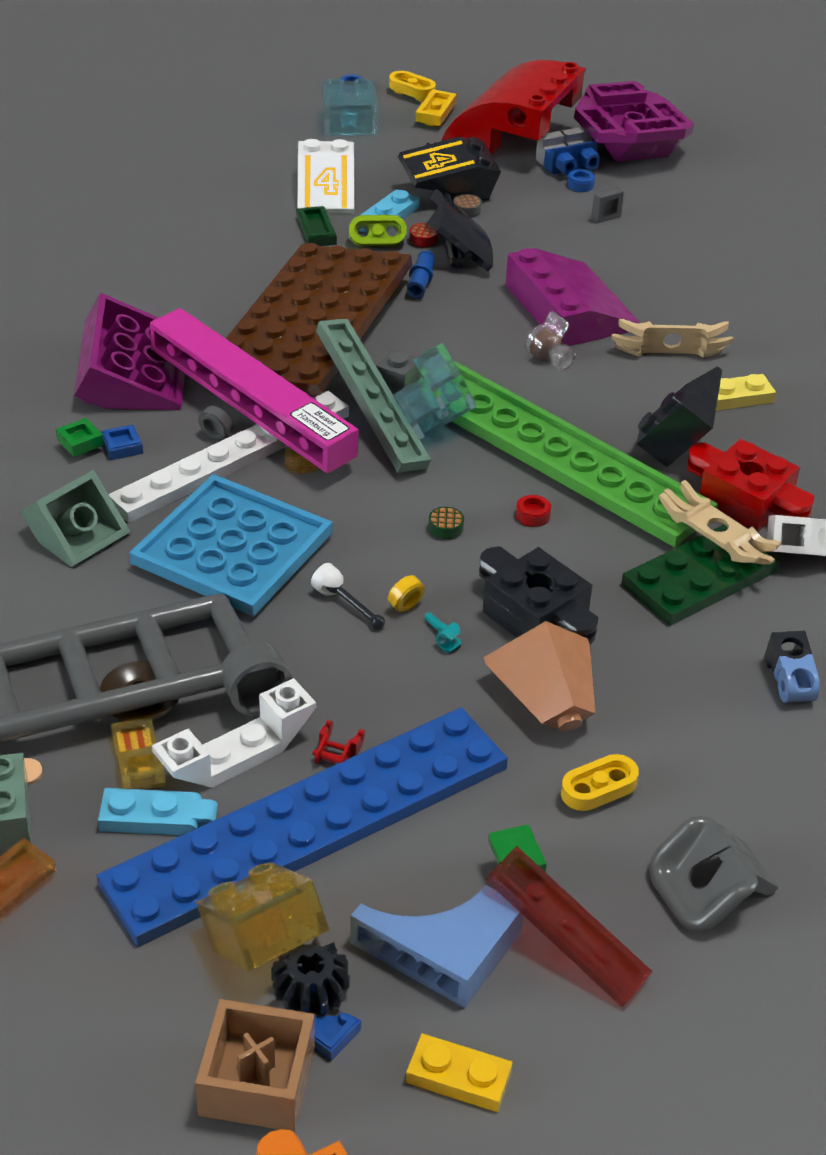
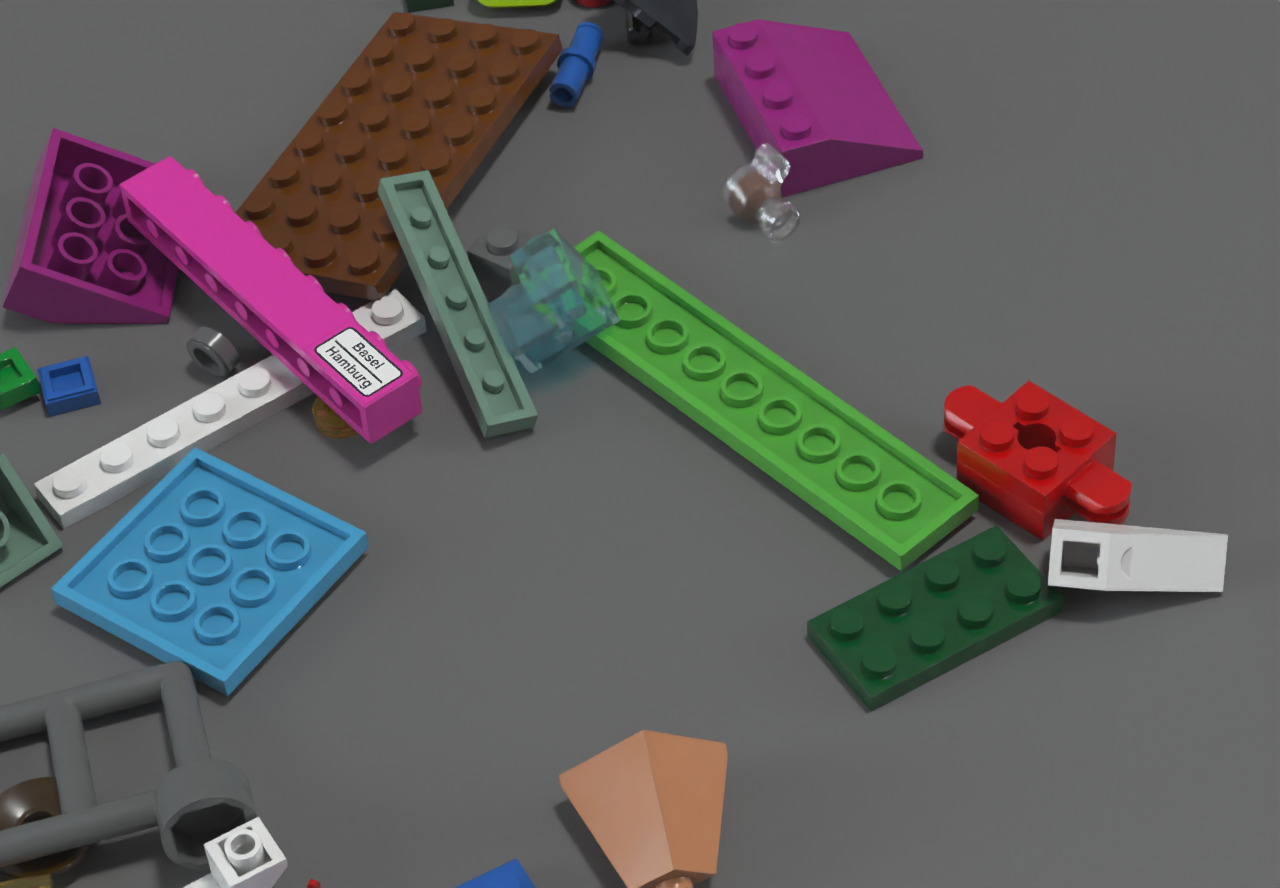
camera: 10 degrees right, 5 degrees up
(329, 582) = (348, 637): hinge -> none
(406, 593) = (462, 659): yellow tile -> none
(446, 522) = (546, 528): dark green tile -> none
(446, 635) = (518, 732): teal hand -> none
(533, 510) = (688, 504): red tile -> none
(535, 590) = (660, 665): black brick -> none
(650, 338) = (998, 182): tan piece -> none
(681, 418) = (941, 342): black slope -> none
(734, 540) = (946, 518): tan piece -> none
(745, 392) = (1059, 278): light yellow plate -> none
(793, 668) = (1044, 792): medium blue leg -> none

